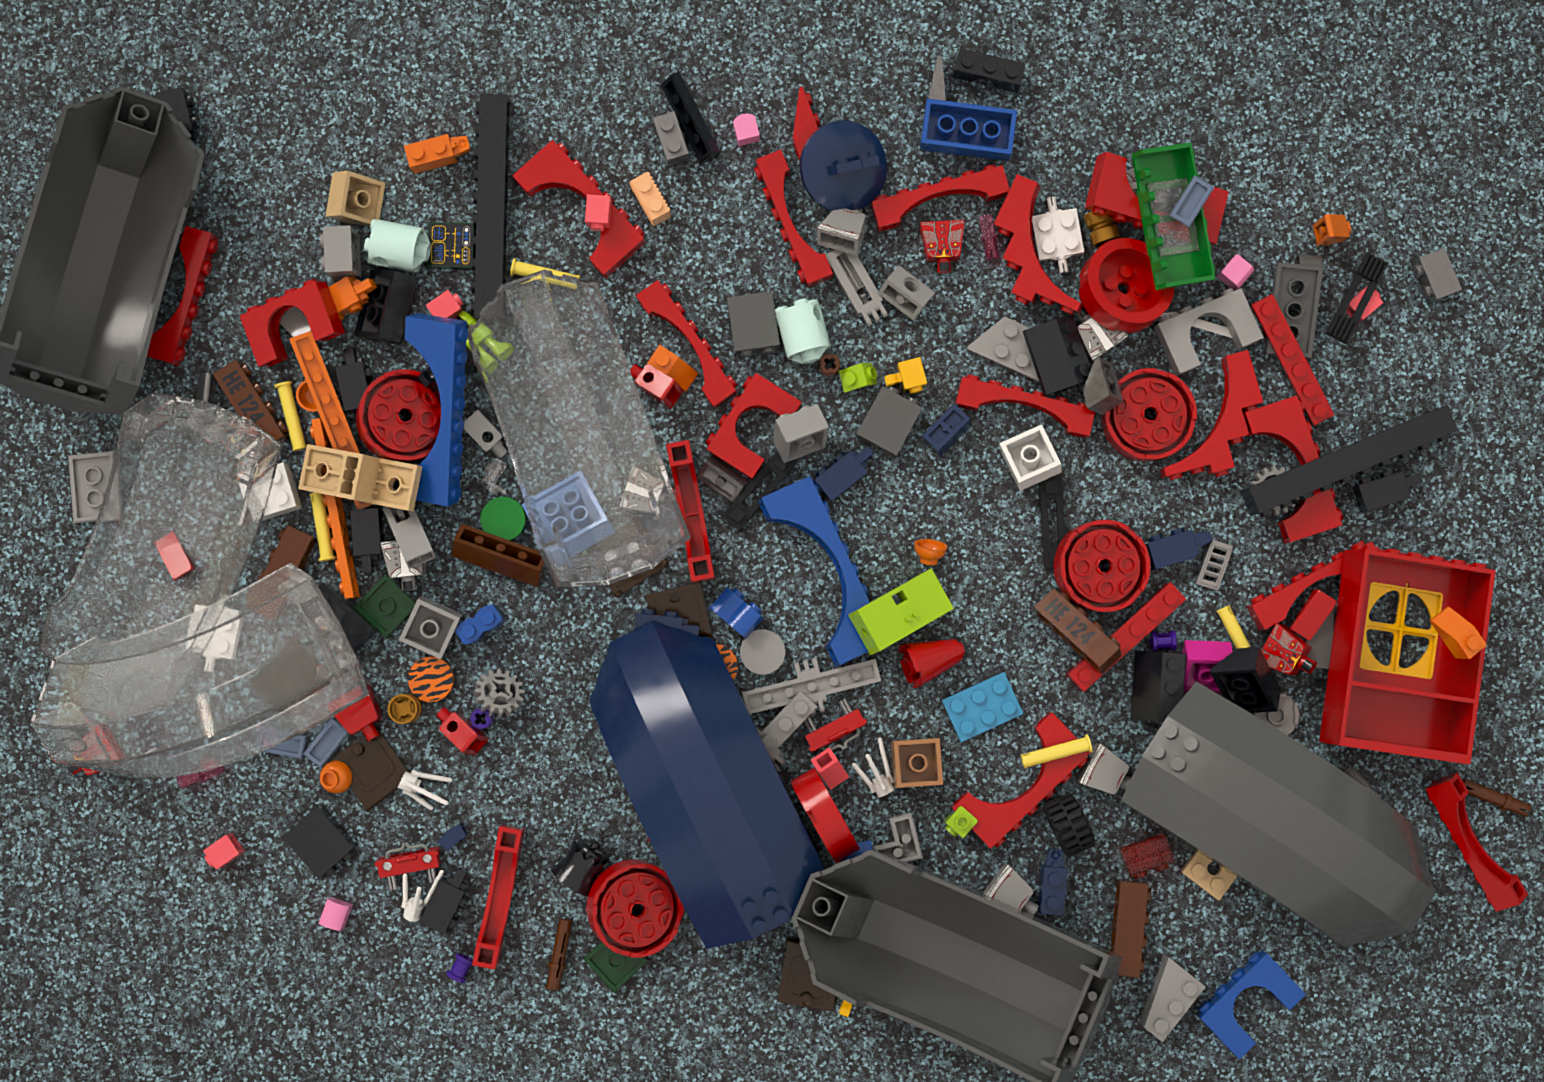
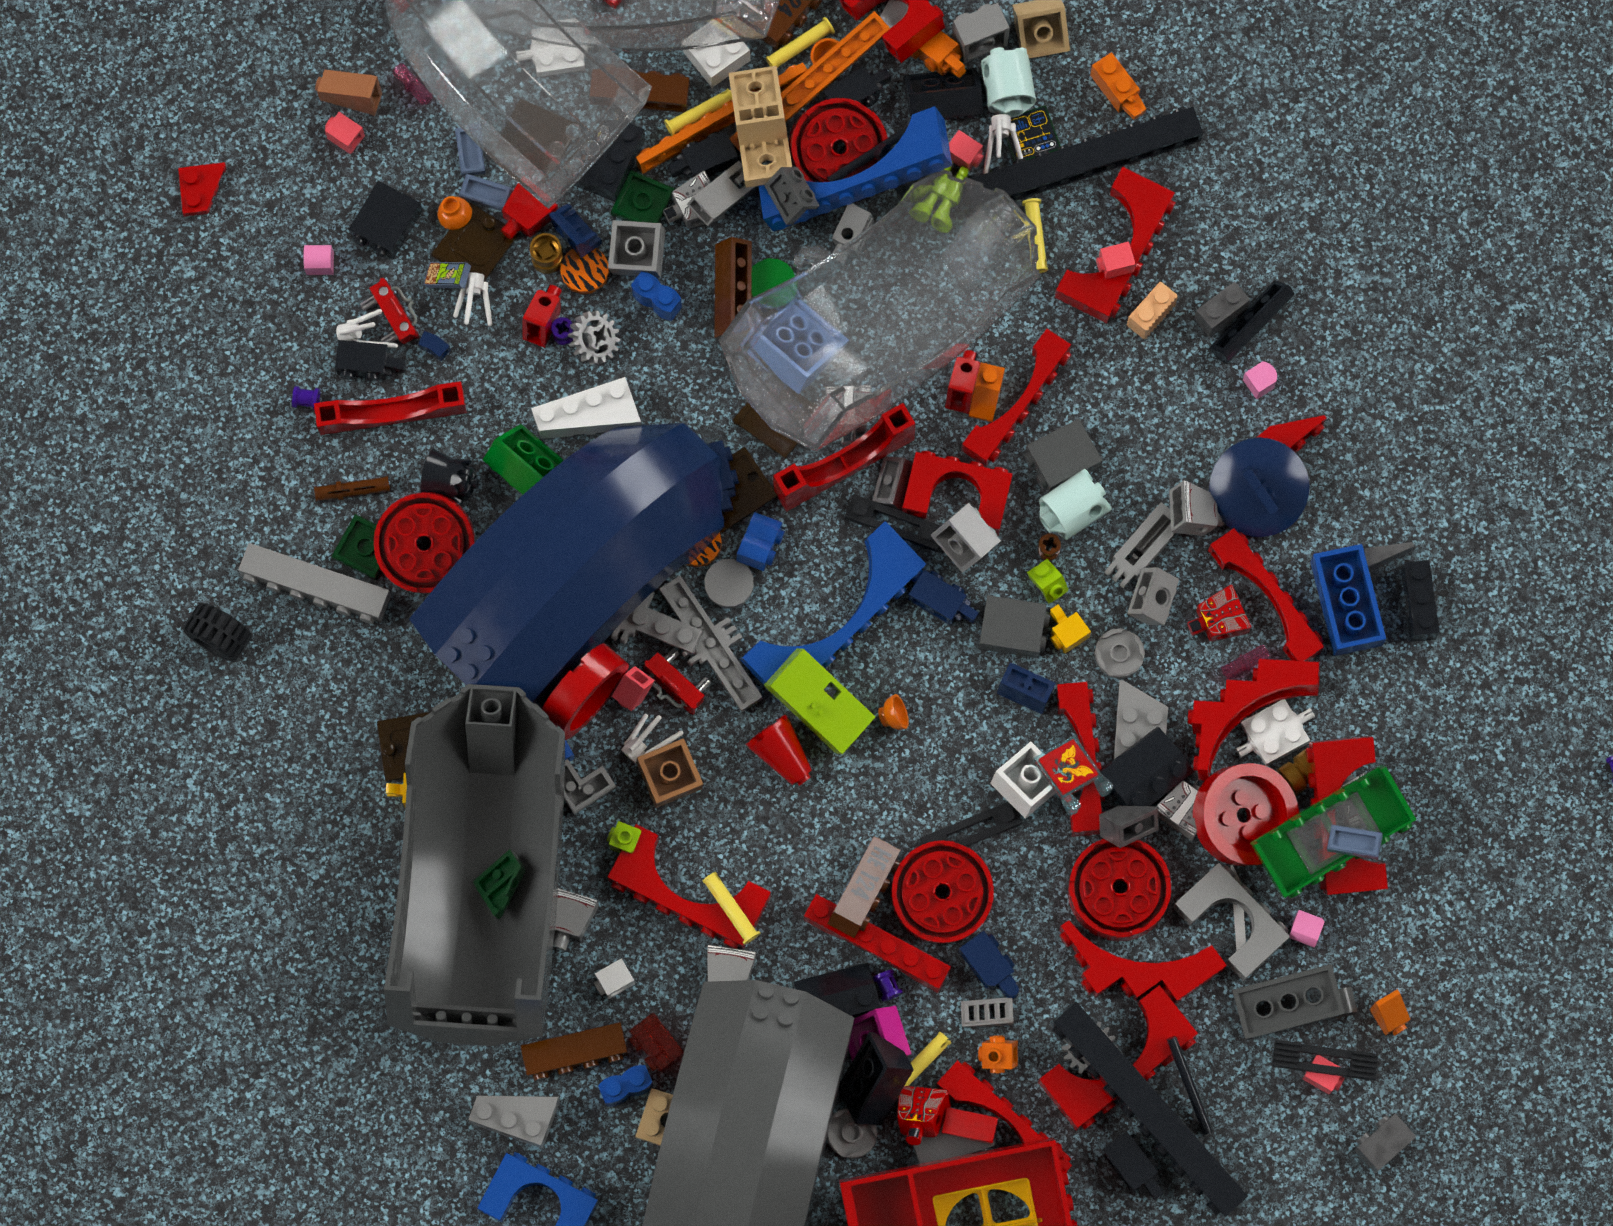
camera: 70 degrees right, 10 degrees down
(186, 833) = (350, 90): none -> nougat slope
(226, 999) = (199, 187): none -> red wing
(393, 675) = (574, 230): none -> dark blue hinge
(393, 804) = (447, 275): none -> tile
(423, 392) = (864, 158): none -> black bar
(436, 268) = (1000, 129): none -> white plant
(436, 473) = (791, 193): none -> dark grey bracket
(565, 720) = (588, 411): none -> white wedge
(591, 791) = (521, 458): none -> green slope
(633, 1017) = (314, 583): none -> light grey brick
(812, 265) = (1227, 422): red arch -> none
(942, 340) = (1119, 653): none -> light grey tile
(963, 944) = (500, 882): none -> dark green wing
(982, 707) = (751, 824): dark azure plate -> none
(1037, 419) = (1069, 770): none -> flag
(1052, 883) = (593, 955): dark blue hinge -> none
(1069, 825) = (660, 947): black tyre -> none
(1078, 873) = (613, 979): none -> white brick
(1174, 902) = (619, 1088): none -> blue brick
(1256, 568) = (1006, 1050): none -> orange brick
(1292, 359) = (1237, 1015): red plate -> none
(1335, 418) = (1189, 1085): none -> black bar

